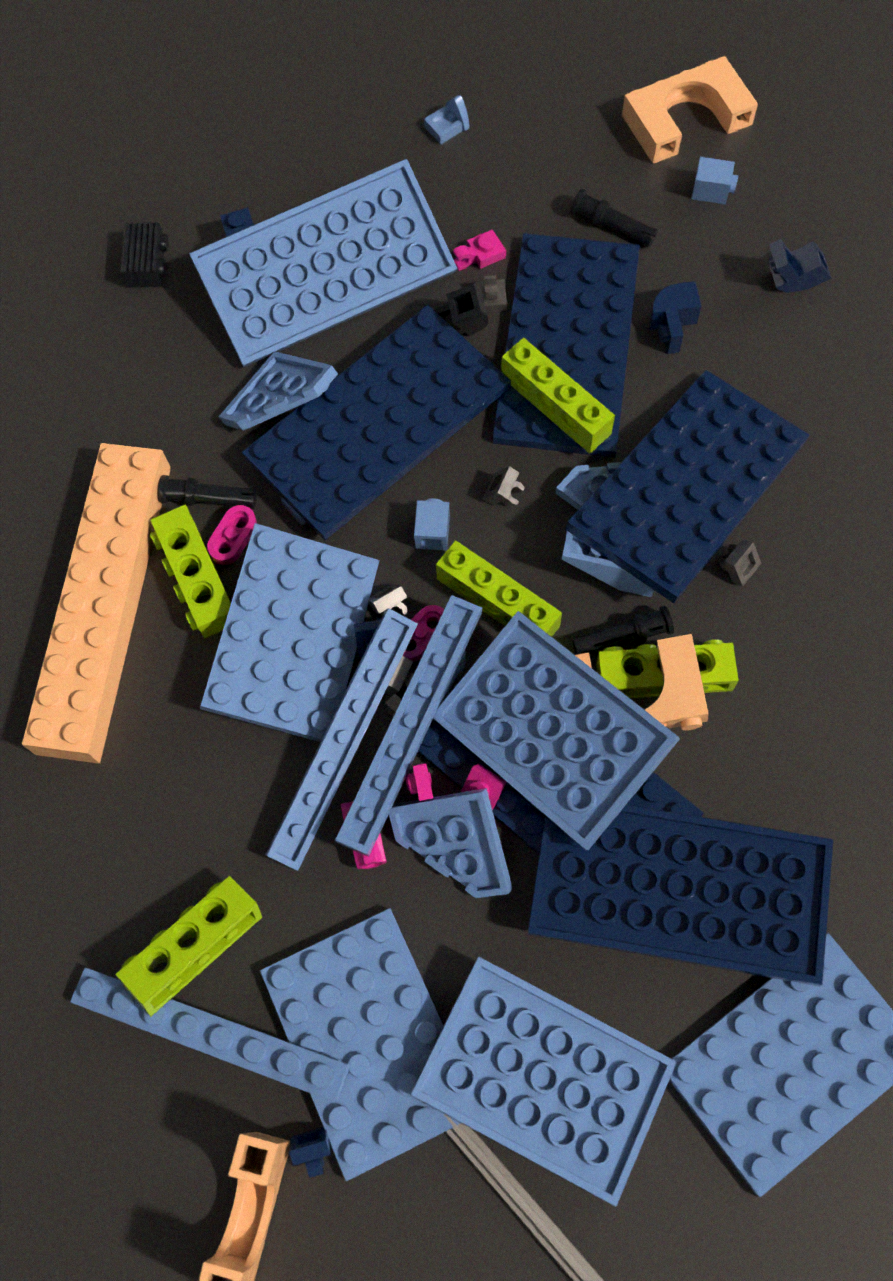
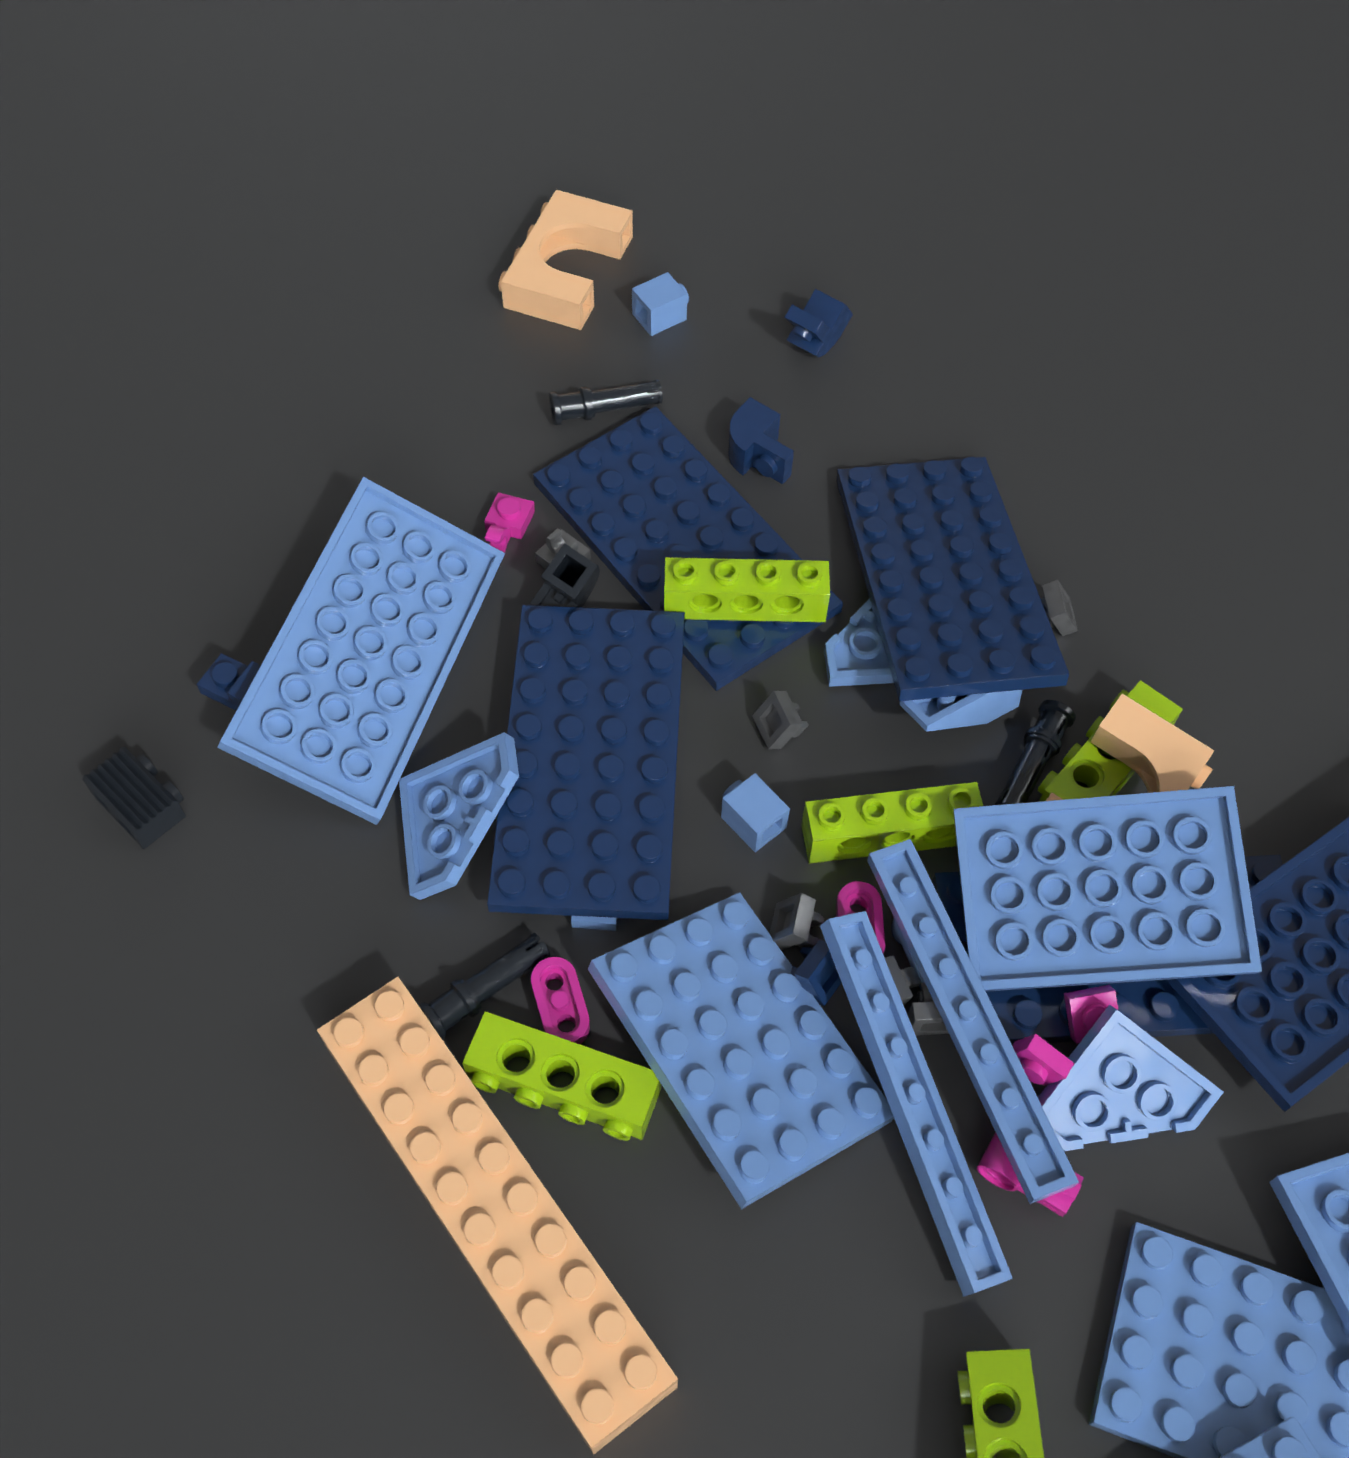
camera: 50 degrees left, 10 degrees down
(448, 120) = (337, 423): medium blue tile -> none

